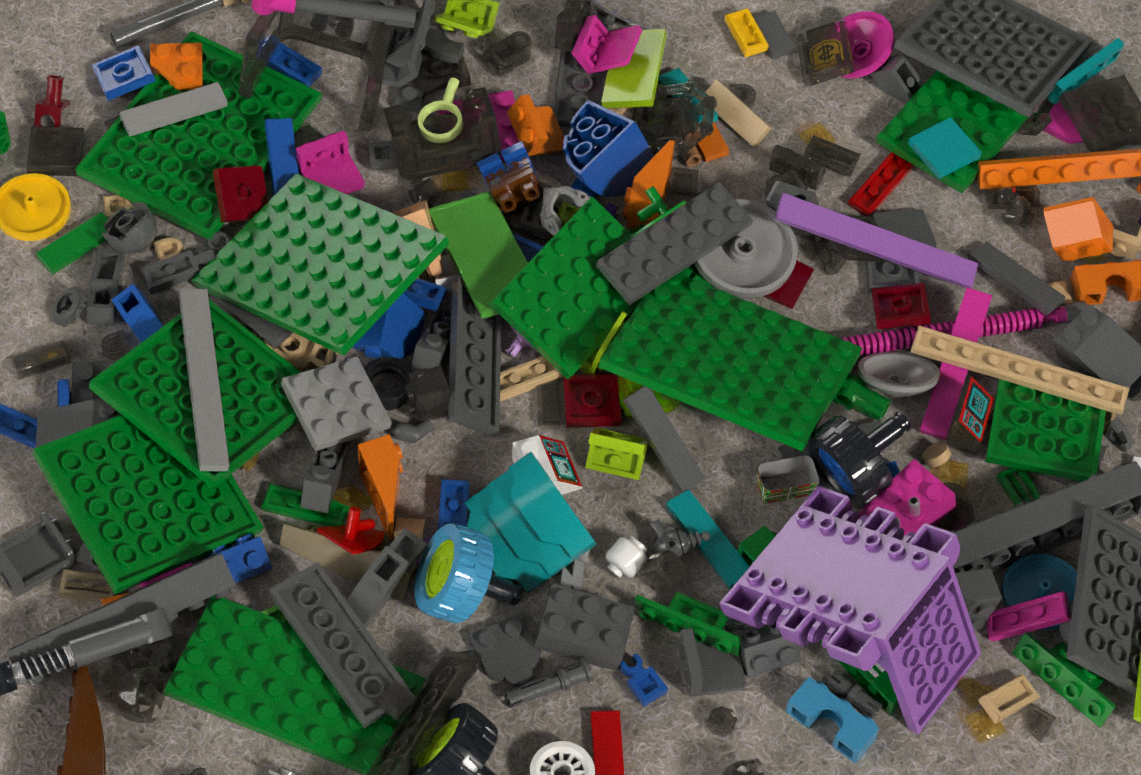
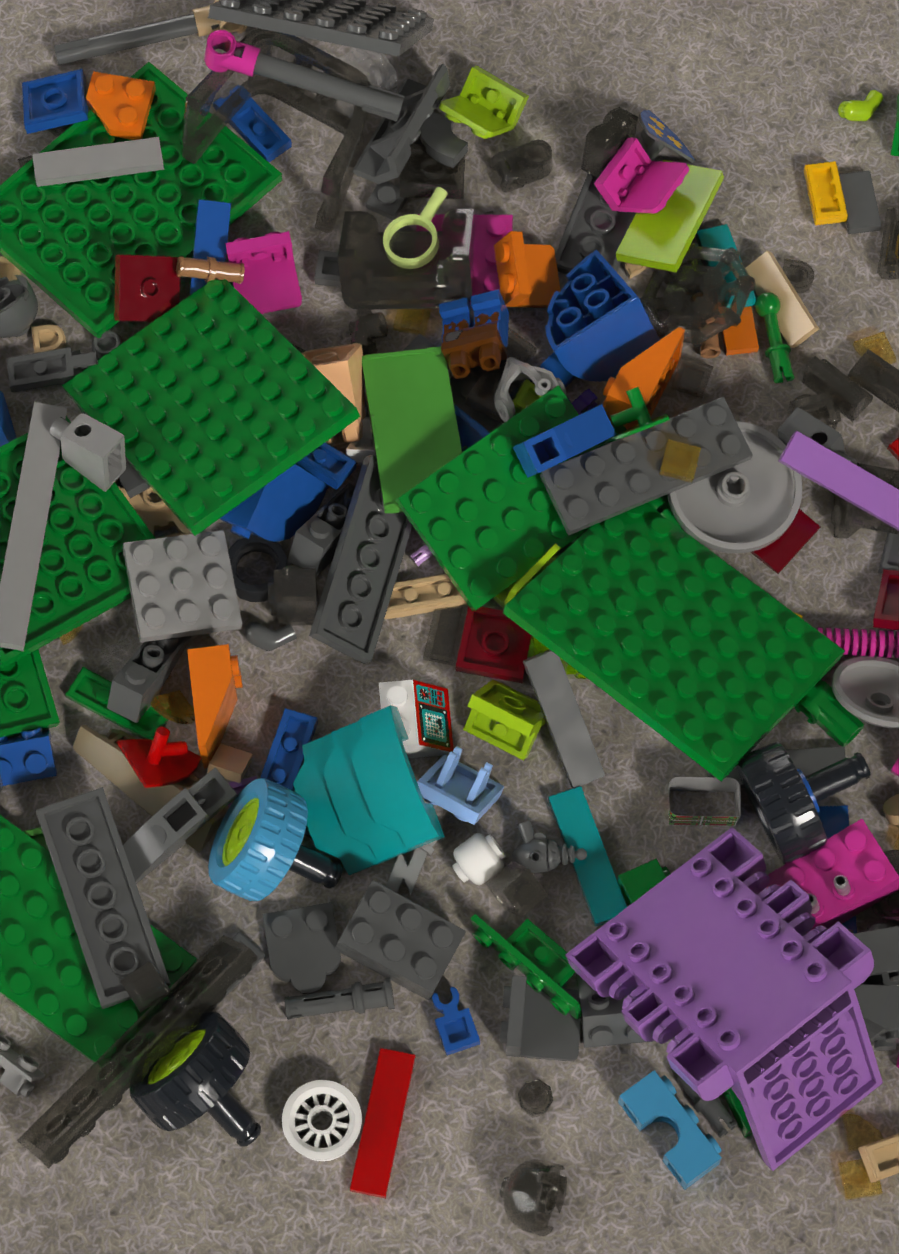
camera: 20 degrees right, 10 degrees up
(238, 313) = (91, 449): none -> light grey torso
(287, 170) = (210, 269): none -> medium nougat pin
(599, 509) = (460, 788): none -> light blue plate
(608, 235) = (564, 441): none -> blue slope
(701, 232) = (680, 460): none -> clear yellow tile
(727, 119) = (768, 306): none -> green pin

